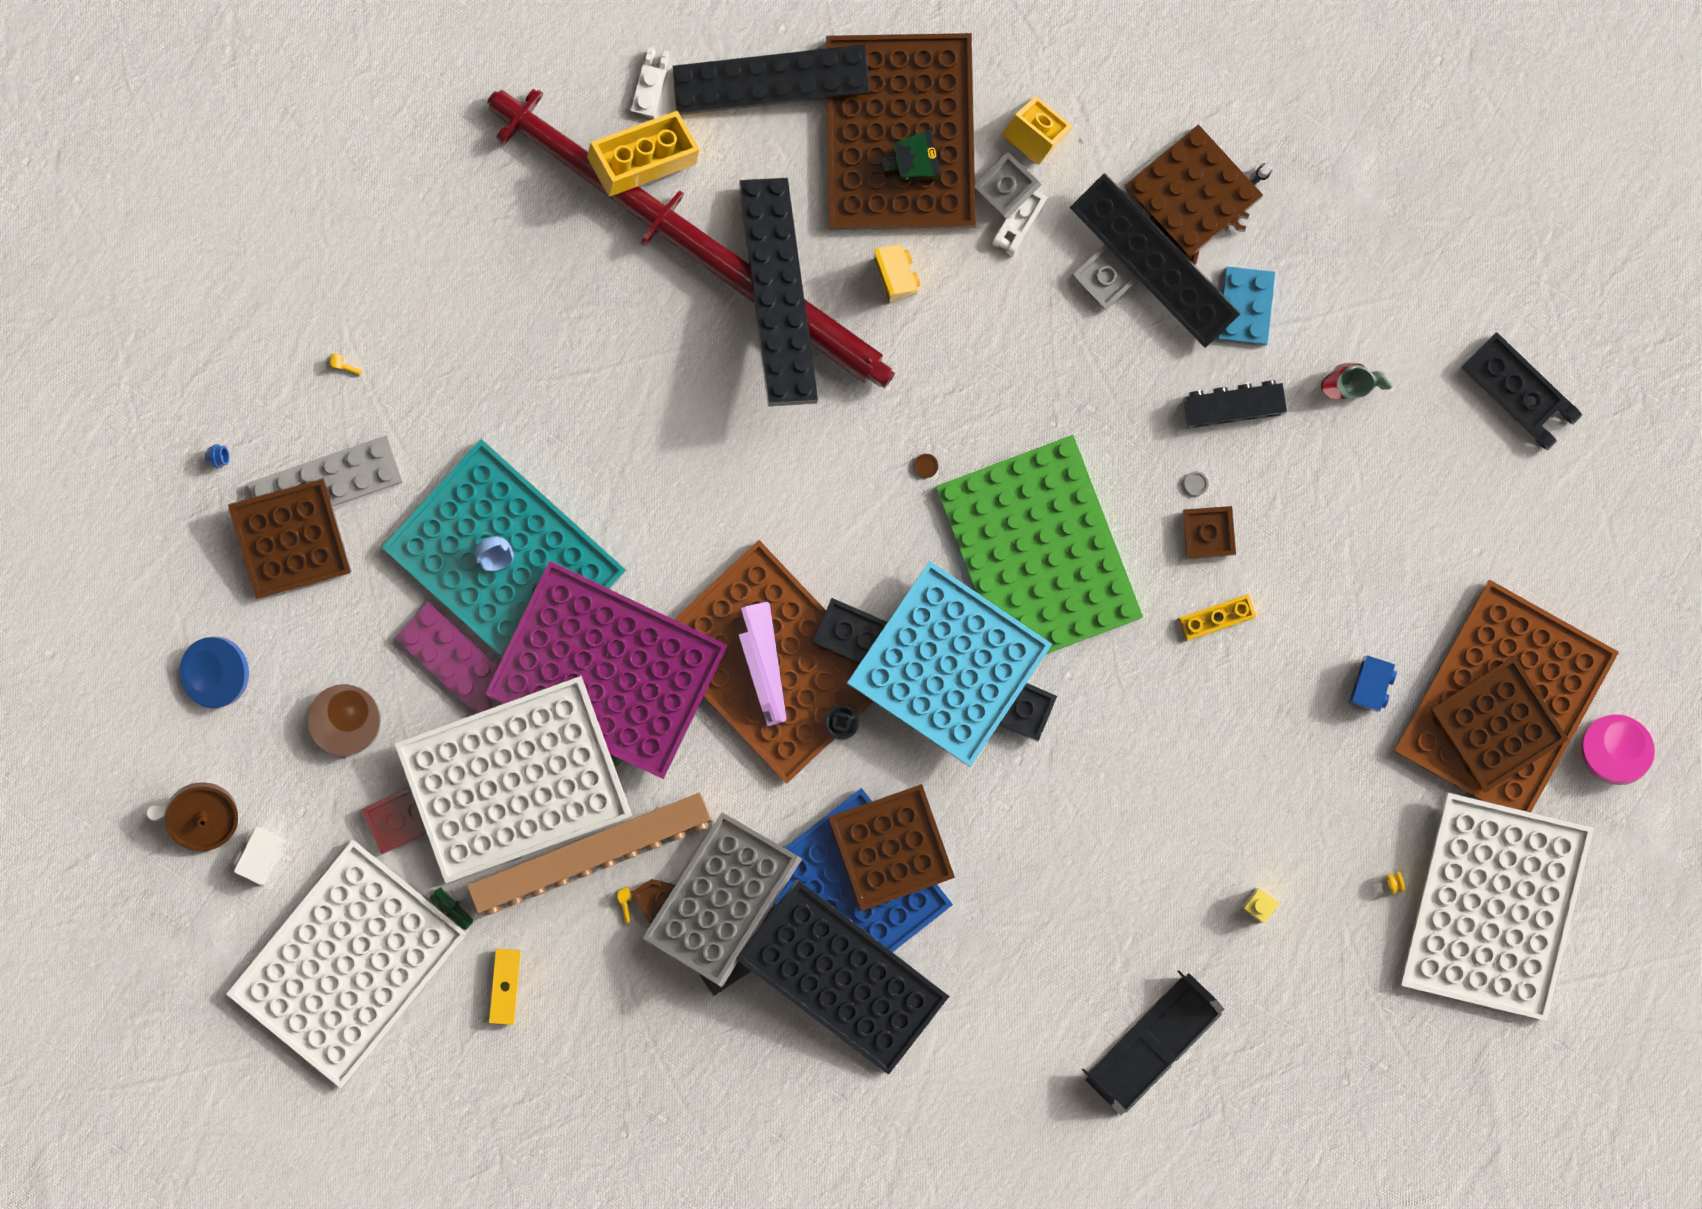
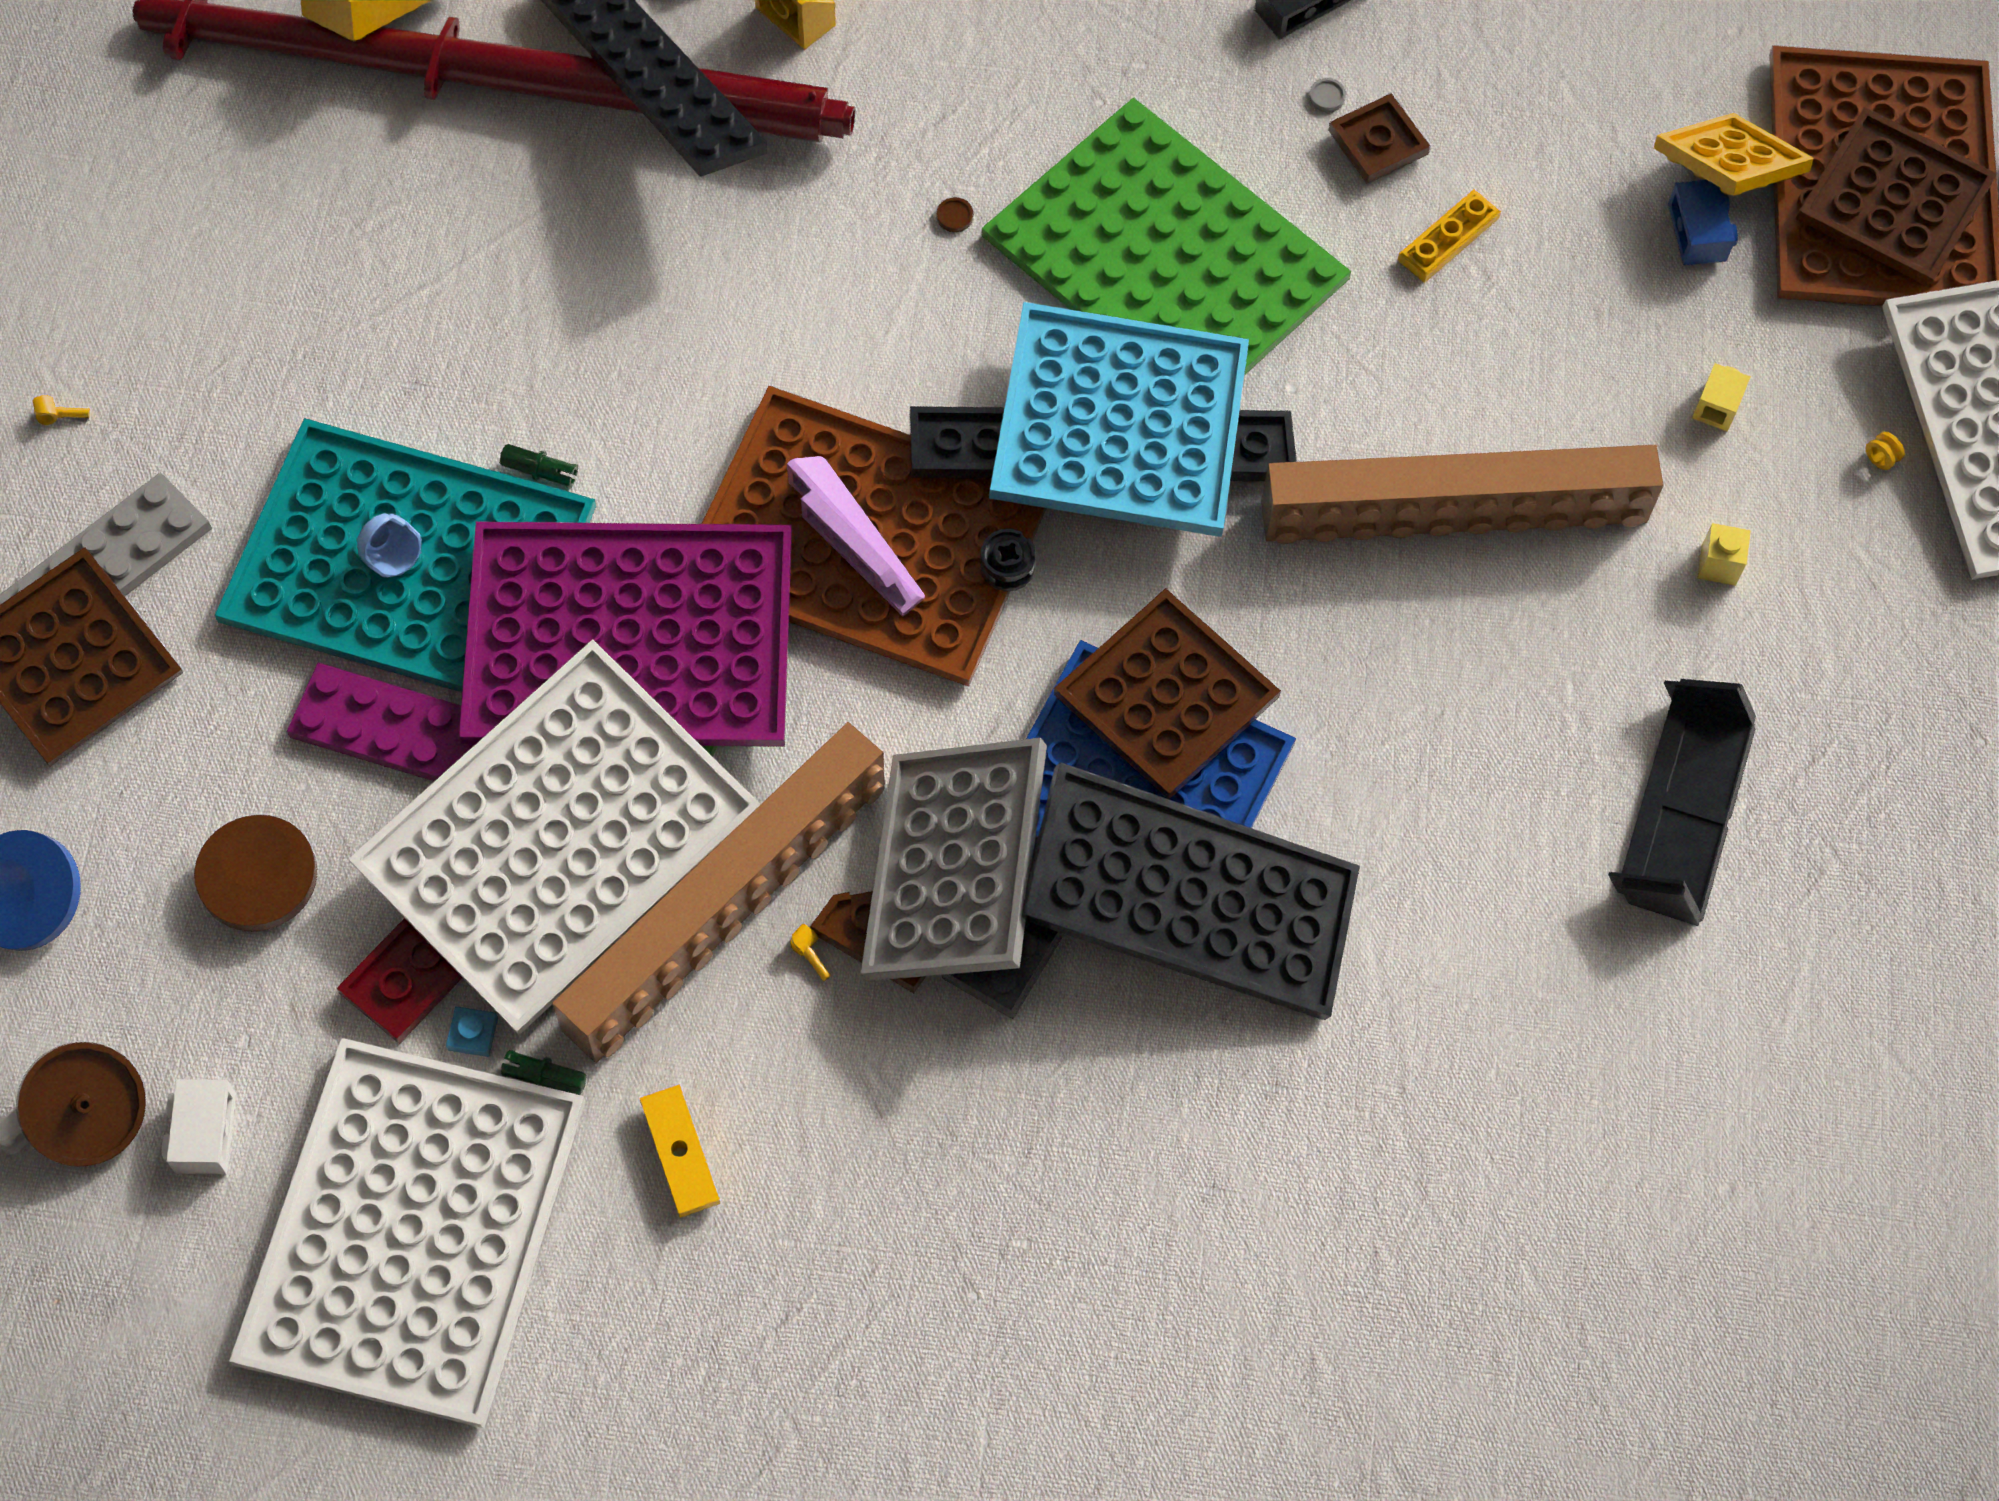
camera: 30 degrees left, 20 degrees down
(424, 865) = (472, 1031): none -> dark azure plate
(604, 529) = (538, 465): none -> dark green axle
(1125, 800) = (1460, 493): none -> medium nougat brick
(1318, 803) = (1721, 397): none -> light yellow brick
(1414, 651) = (1733, 154): none -> yellow plate

